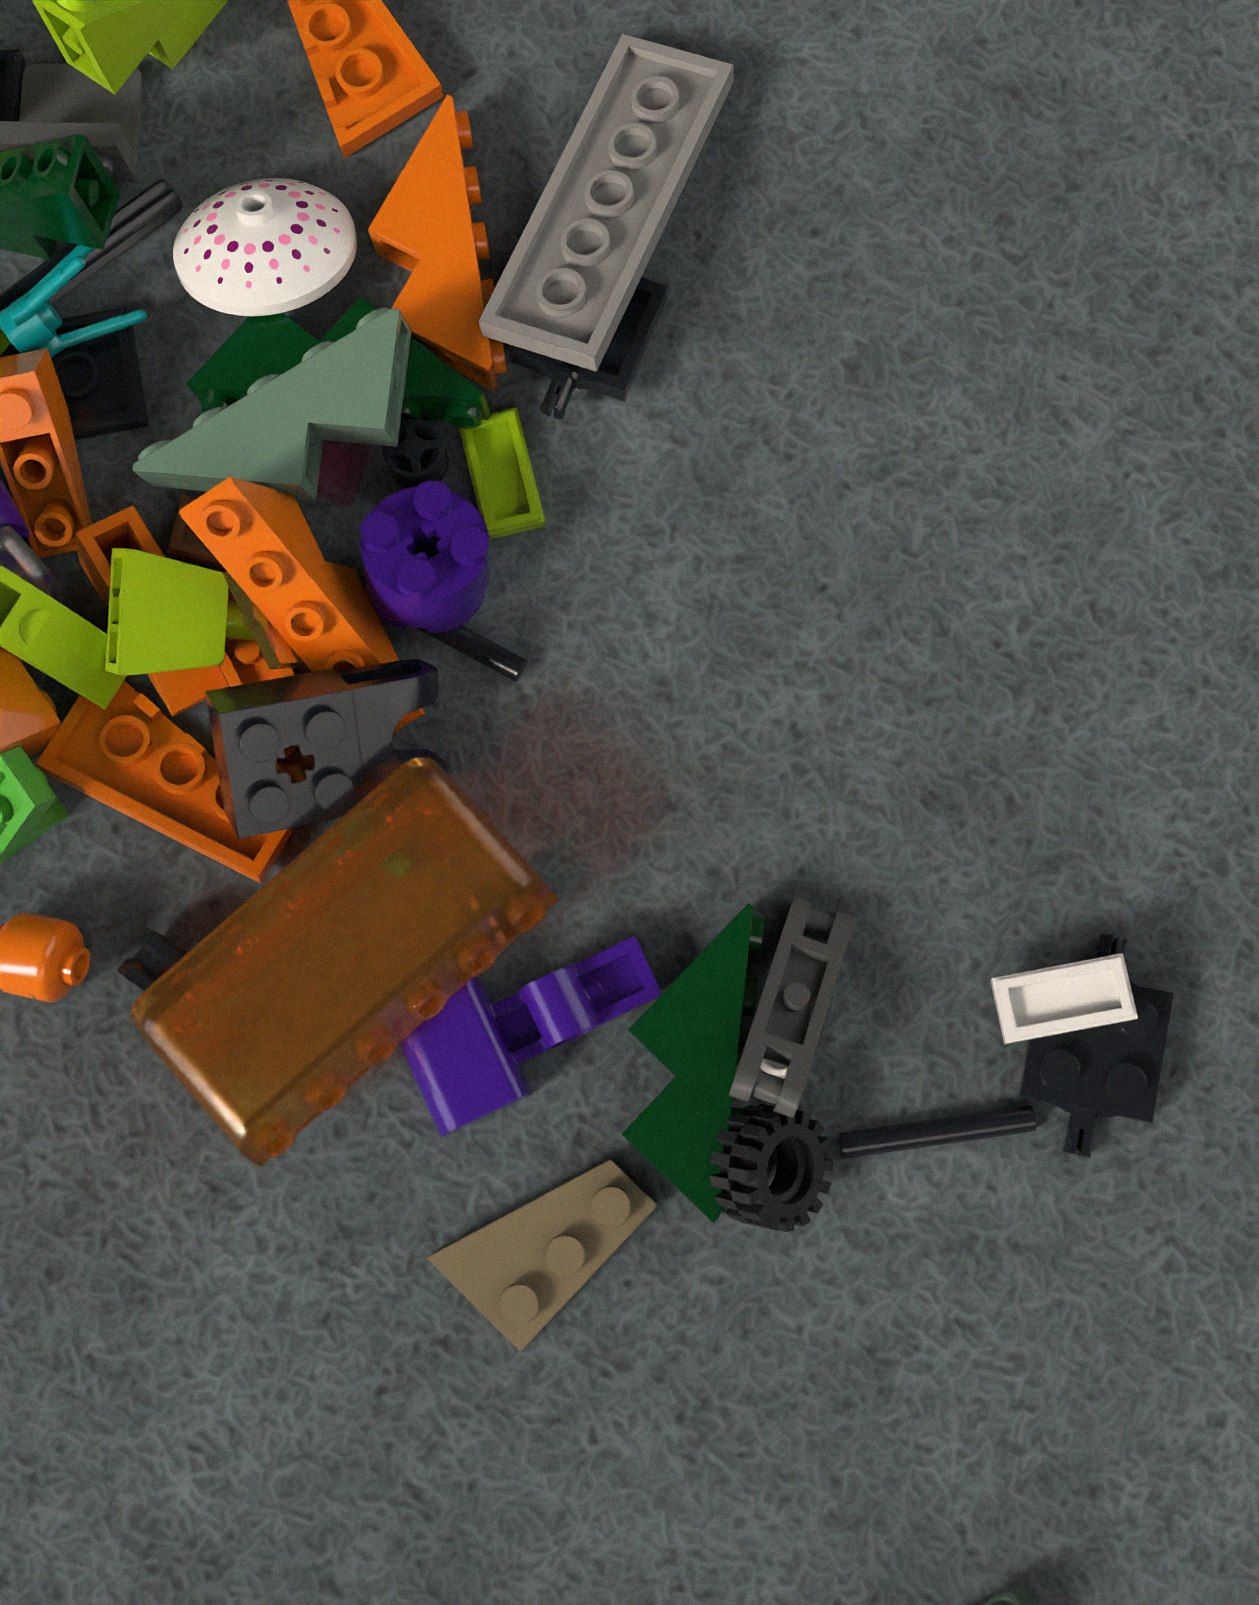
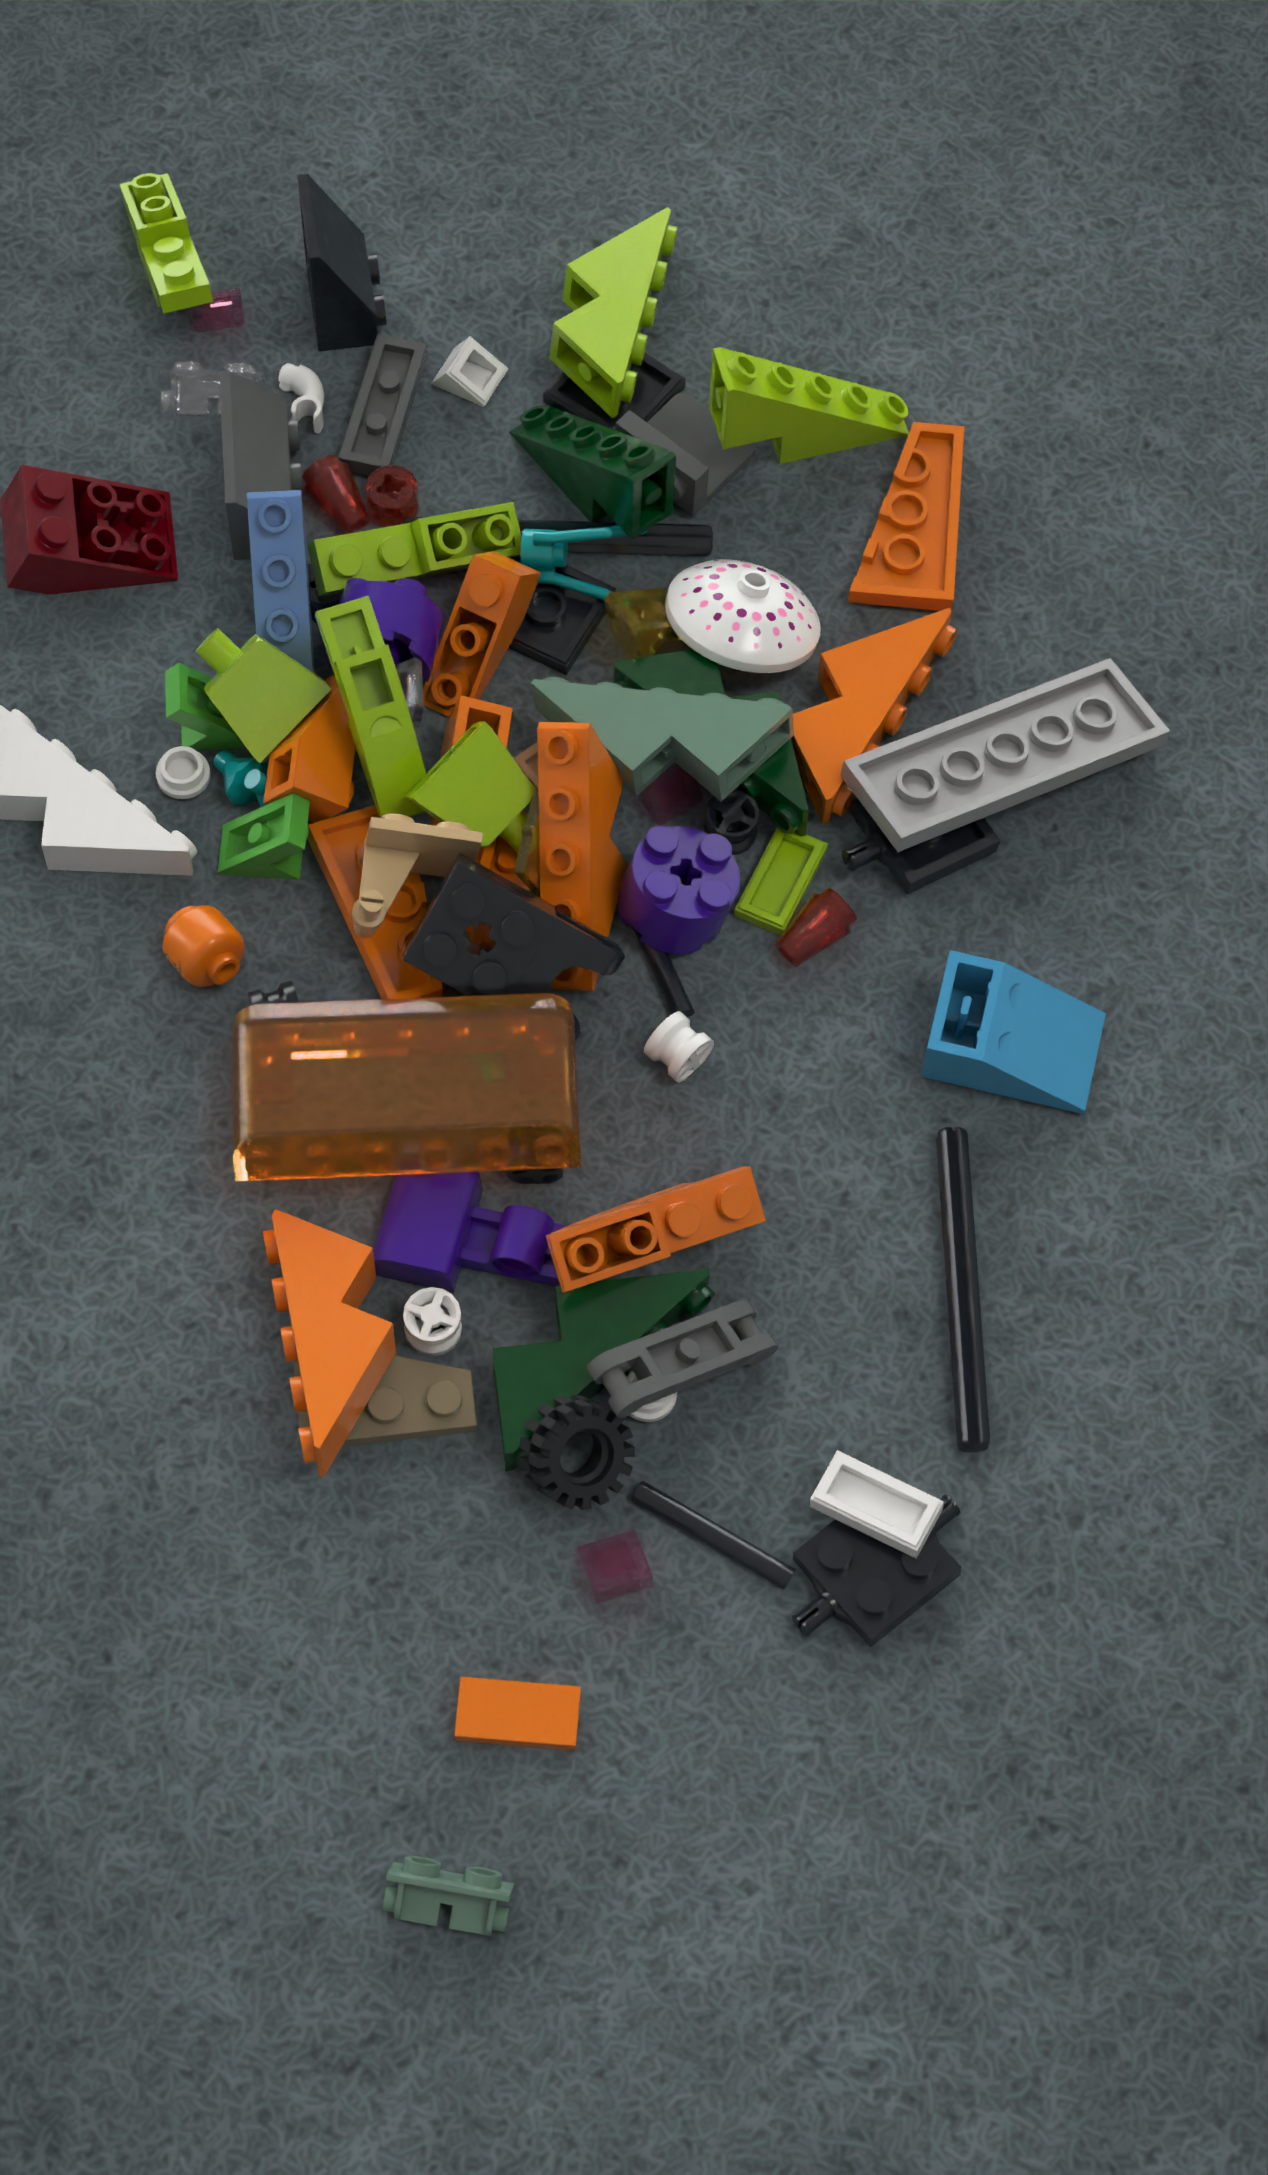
camera: 30 degrees right, 15 degrees down
(143, 744) = (395, 849): none -> tan plate
(176, 324) = (639, 620): none -> clear yellow slope
(480, 1251) = (335, 1342): none -> orange slope
(530, 1145) = (433, 1308): none -> white wheel
(544, 707) = (678, 1046): none -> white wheel
(571, 496) = (817, 926): none -> clear red cone
(663, 904) = (654, 1227): none -> orange slope
(823, 465) = (1012, 1035): none -> dark azure slope
(879, 1231) = (615, 1566): none -> clear pink slope
(905, 1434) = (517, 1713): none -> orange tile
(966, 733) = (962, 1290): none -> black axle

